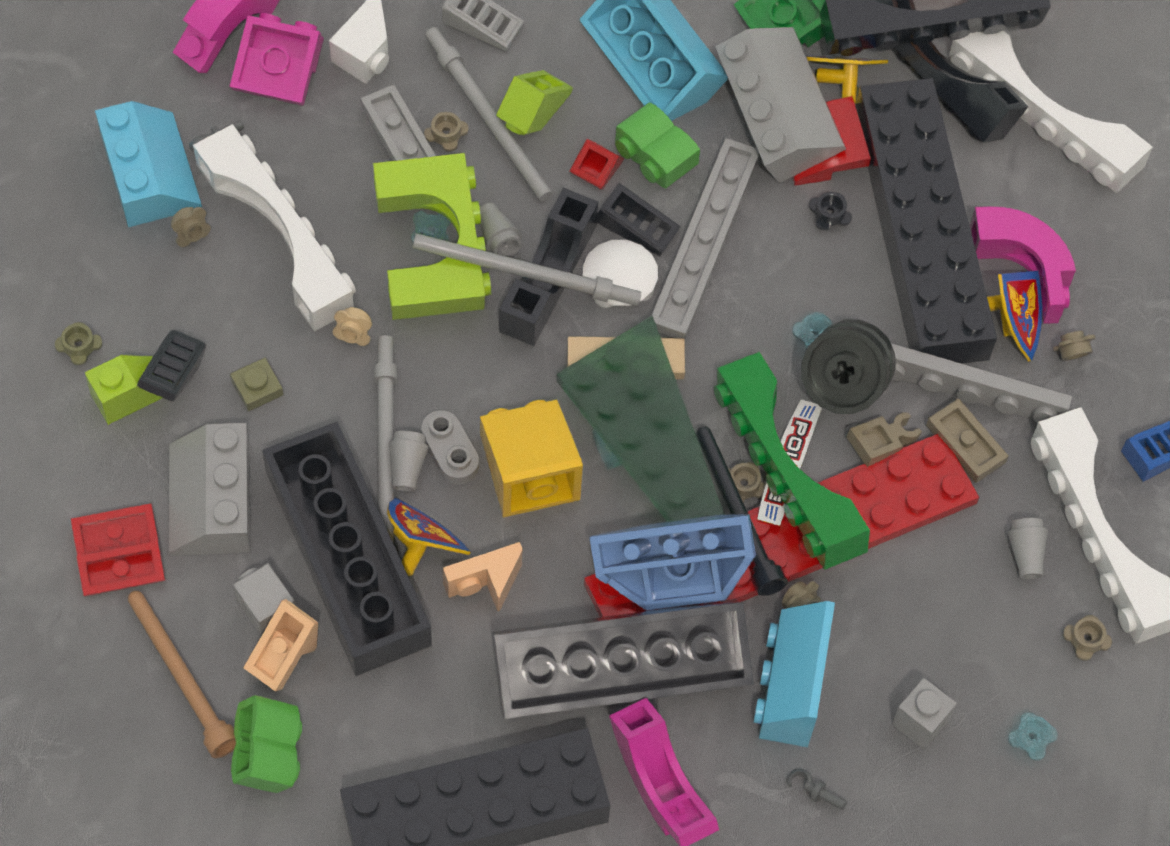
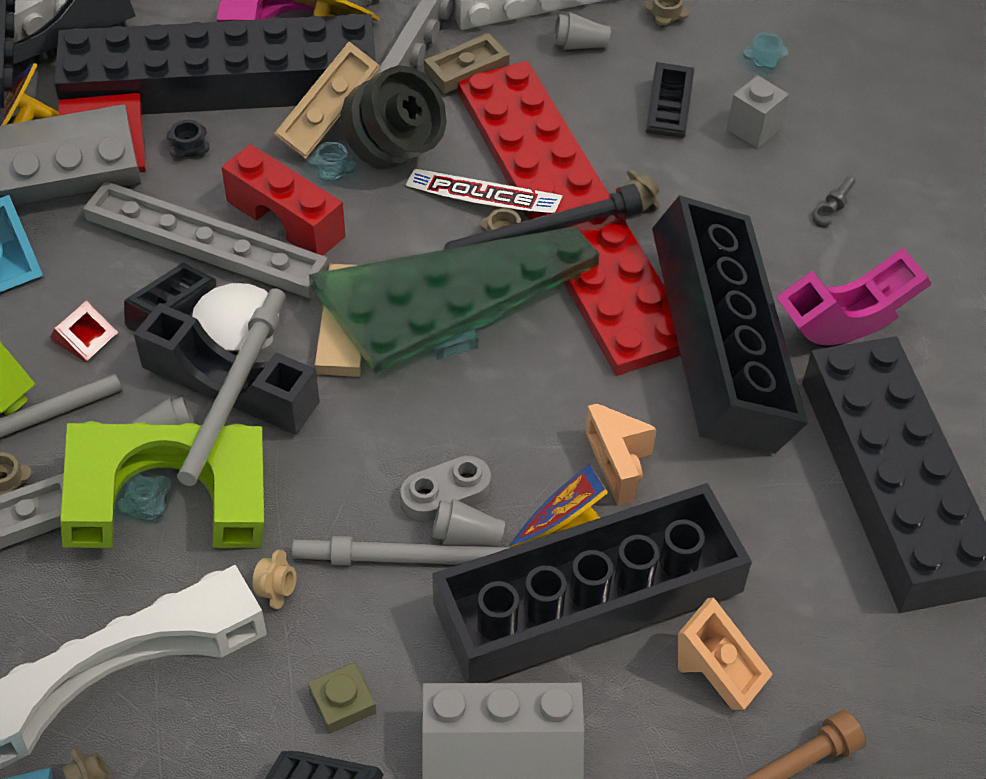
camera: 85 degrees left, 10 degrees down
(260, 595) = (655, 681): light grey brick -> none
(266, 744) = (854, 674): bright green brick -> none
(531, 457) = (473, 396): yellow slope -> none
(656, 145) = (76, 269): bright green brick -> none
(676, 560) = (618, 249): medium blue wedge -> none
(760, 276) = (308, 213): none -> red arch
(794, 673) = (734, 176): medium azure slope -> none
(827, 520) = (420, 206): green arch -> none
(878, 440) = (465, 123): dark tan plate -> none
(896, 319) = (323, 103): none -> tan tile
(956, 621) = (674, 77): none -> black slope

